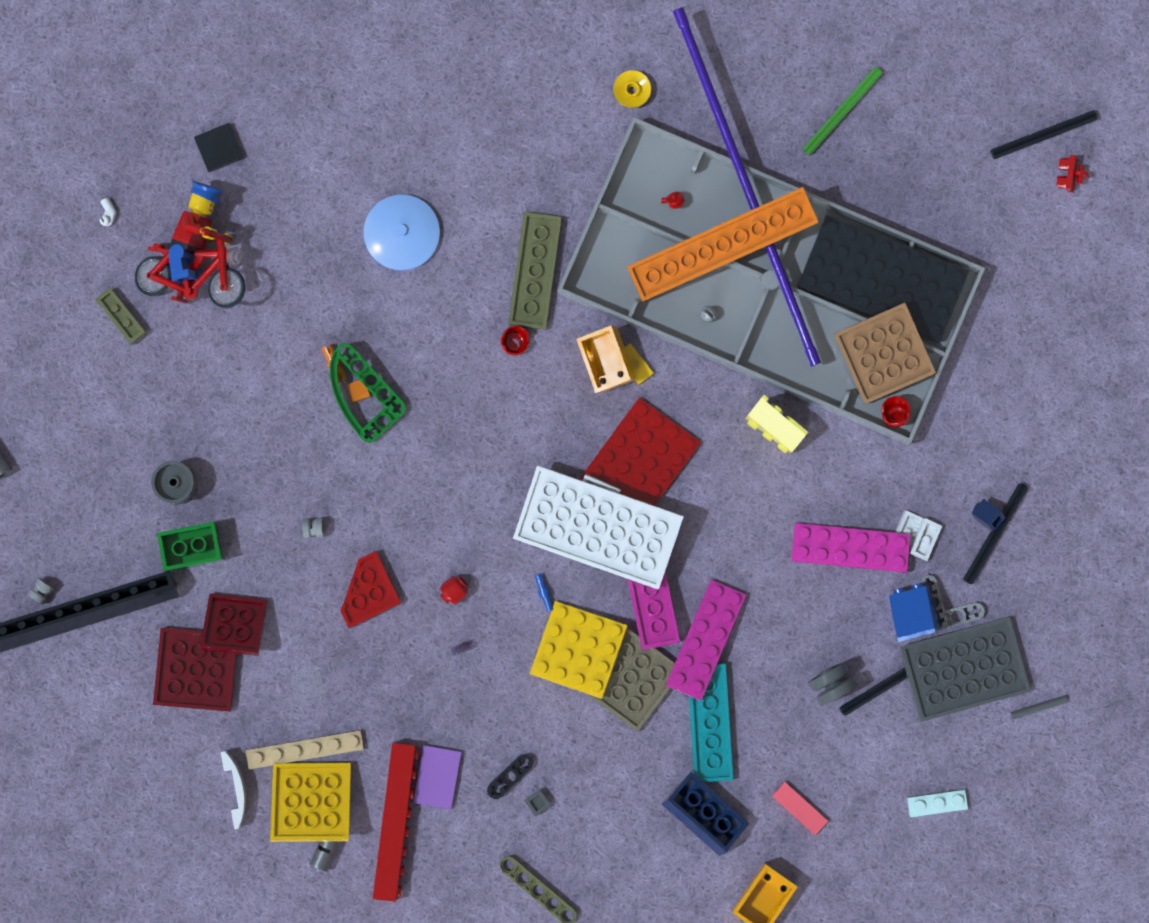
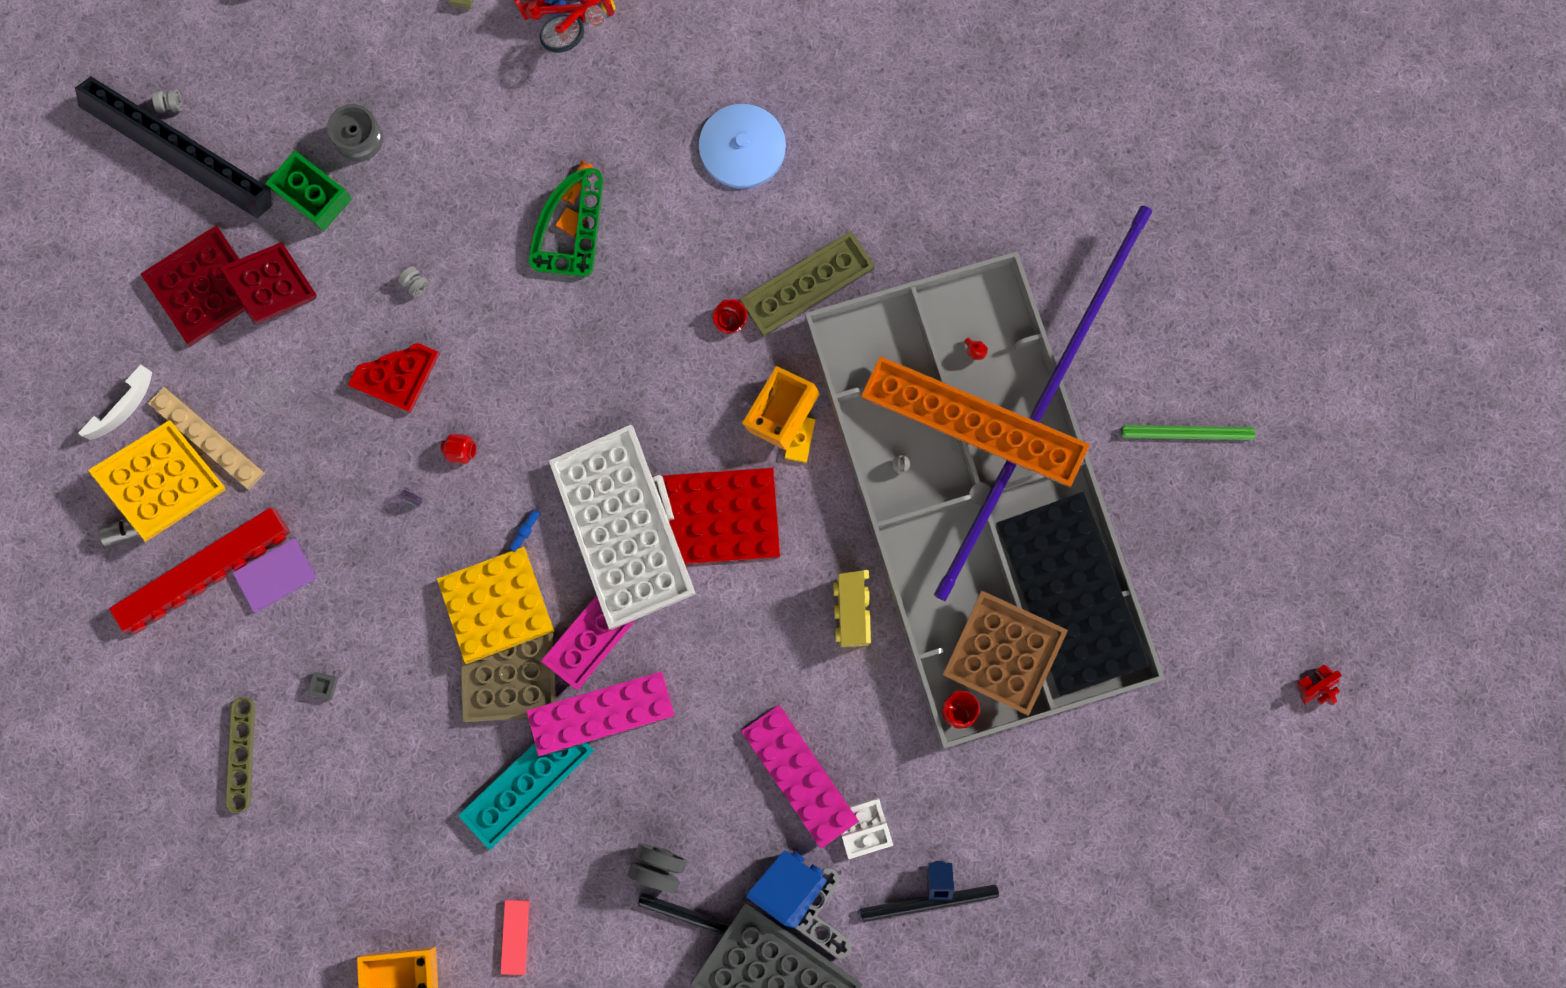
camera: 50 degrees right, 5 degrees down
(502, 790) = (322, 632): black beam -> none
(635, 80) = (1043, 224): yellow dish -> none
(705, 814) = (435, 851): dark blue slope -> none
(1044, 134) = (1332, 631): black axle -> none

